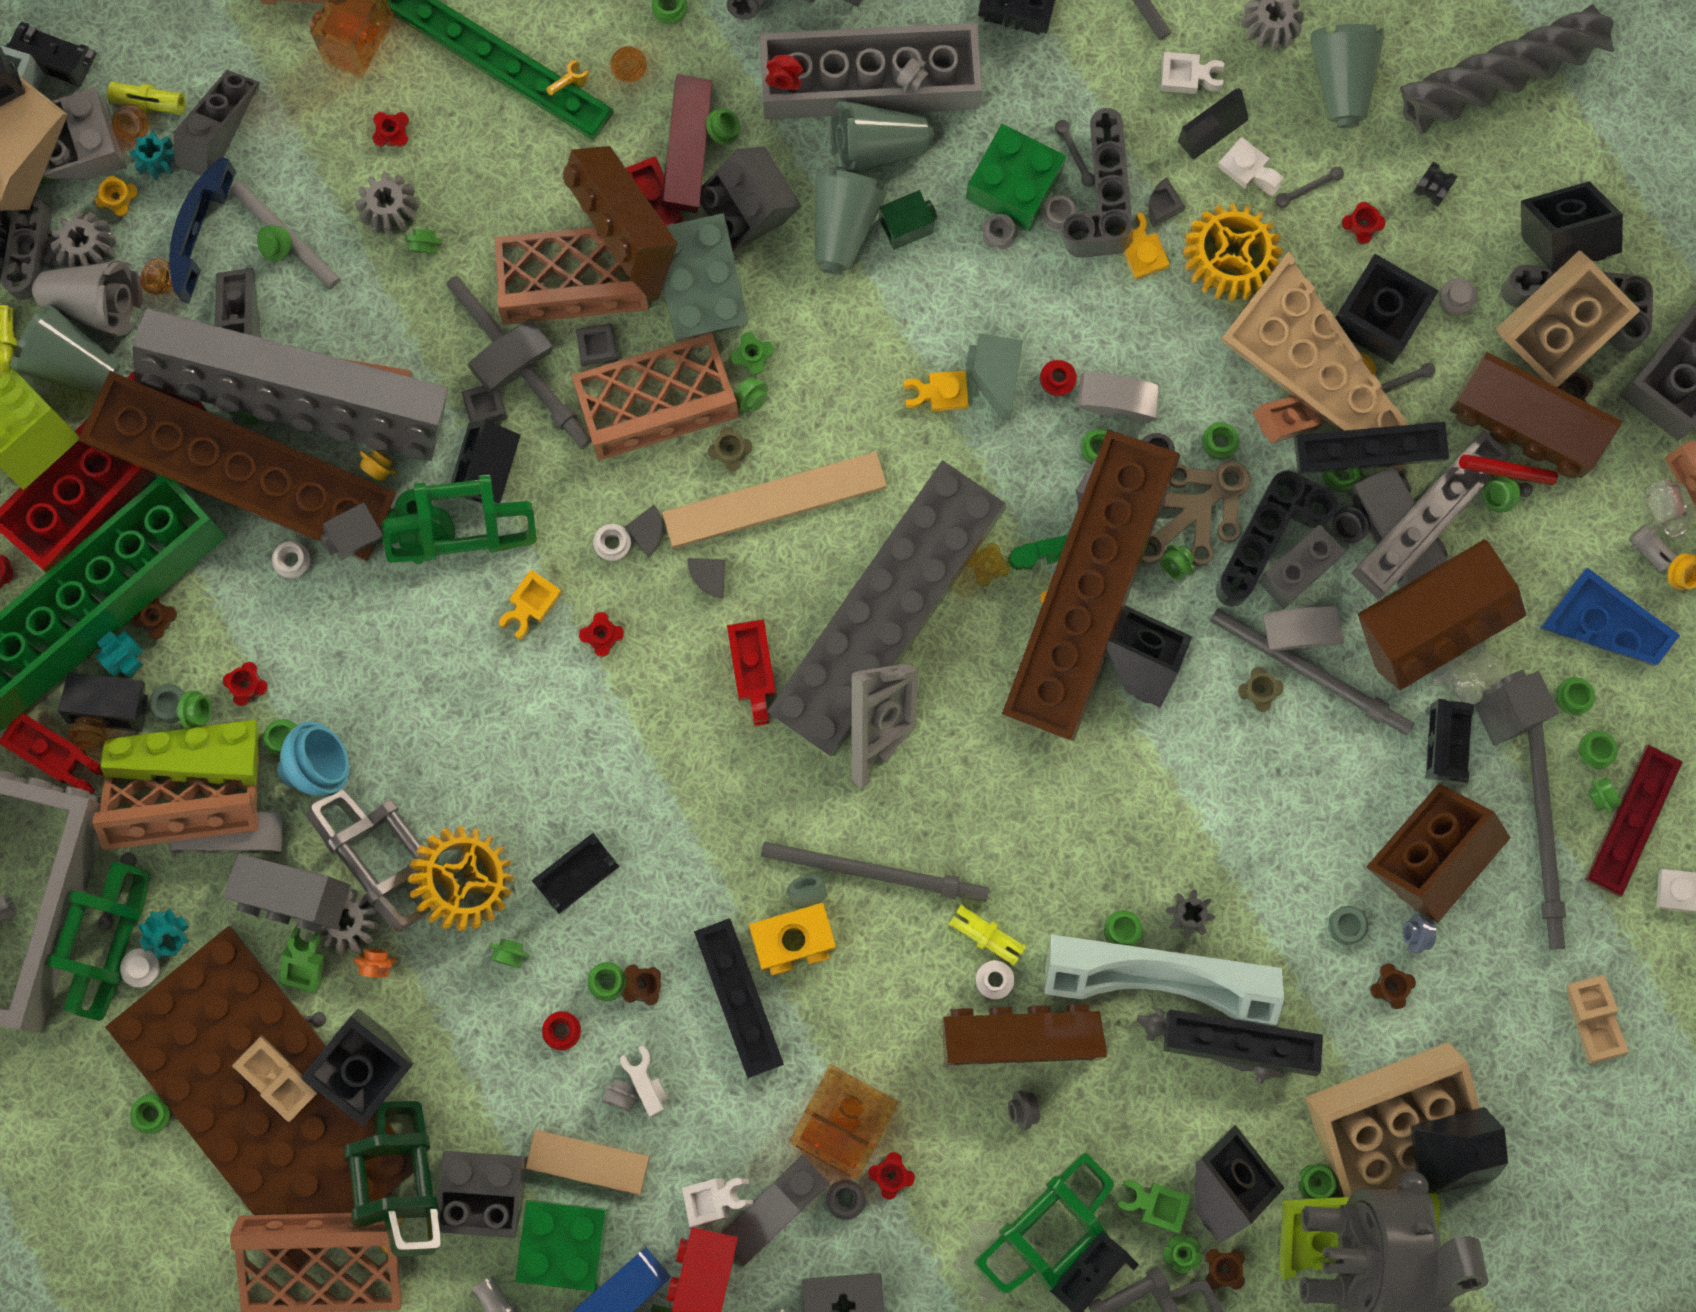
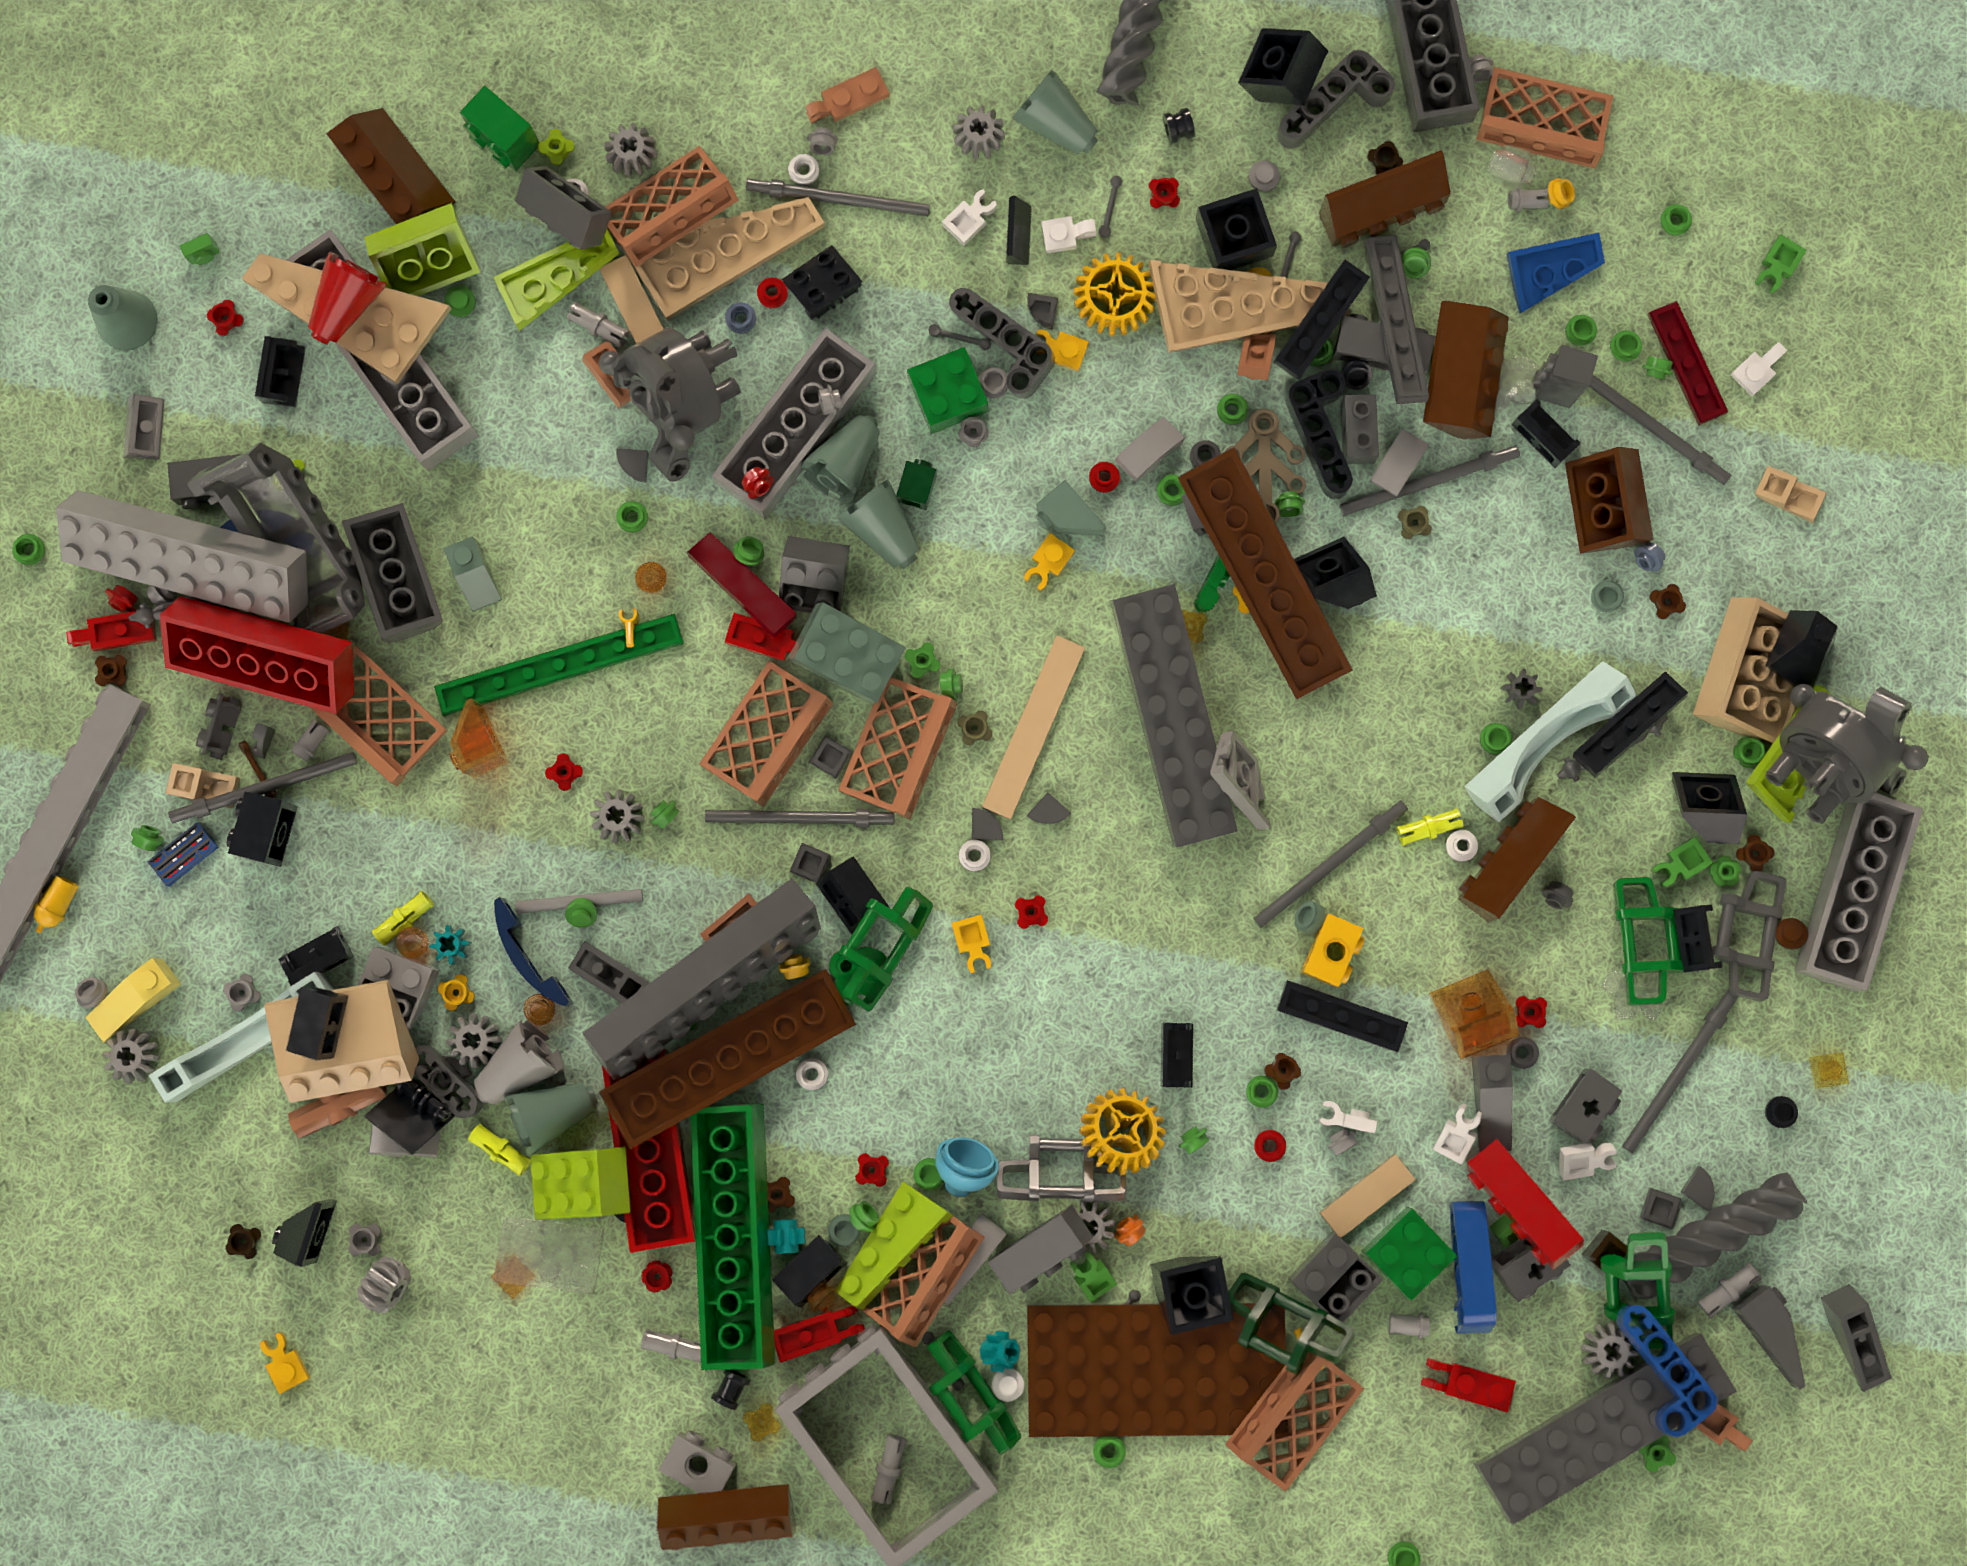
camera: 45 degrees left, 5 degrees up
(213, 123) = (460, 886): dark grey slope -> none
(274, 1078) = (1155, 1352): tan slope -> none
(350, 532) = (833, 1020): dark grey brick -> none
(510, 354) = (792, 820): dark grey slope -> none
(621, 216) = (768, 669): reddish brown slope -> none
(752, 666) = (1134, 832): red plate -> none
(1508, 469) = (1405, 246): red bar -> none
(1567, 319) = (1344, 124): tan brick -> none

